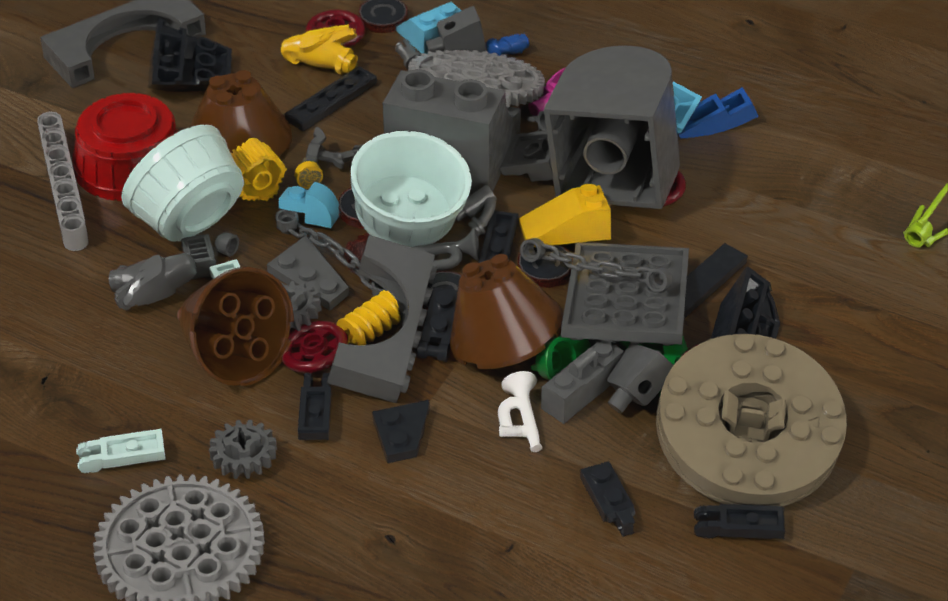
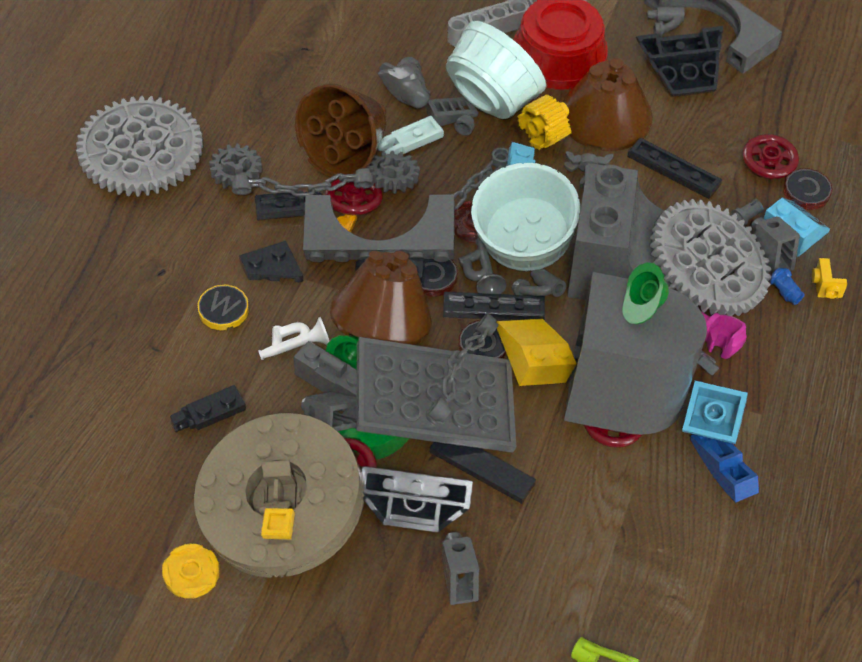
camera: 80 degrees right, 10 degrees up
(104, 67) = (672, 15): none -> dark grey plant
(121, 450) = (231, 102): light aqua hinge -> none
(286, 433) = (243, 185): none -> dark grey piece
(306, 264) = (443, 179): dark grey wing -> none
(307, 174) = (560, 162): yellow tile -> none
(322, 49) = (728, 148): yellow animal -> none
(371, 319) = (379, 222): yellow piece -> none
(460, 477) = (223, 307): none -> tile
(506, 18) = (825, 284): none -> yellow bracket
(595, 65) = (644, 293): none -> green piece
(740, 521) = (182, 515): black hinge -> none
(804, 406) = (277, 523): none -> yellow tile
(823, 523) = (190, 571): none -> yellow tile
(833, 299) = (458, 558): none -> dark grey torso

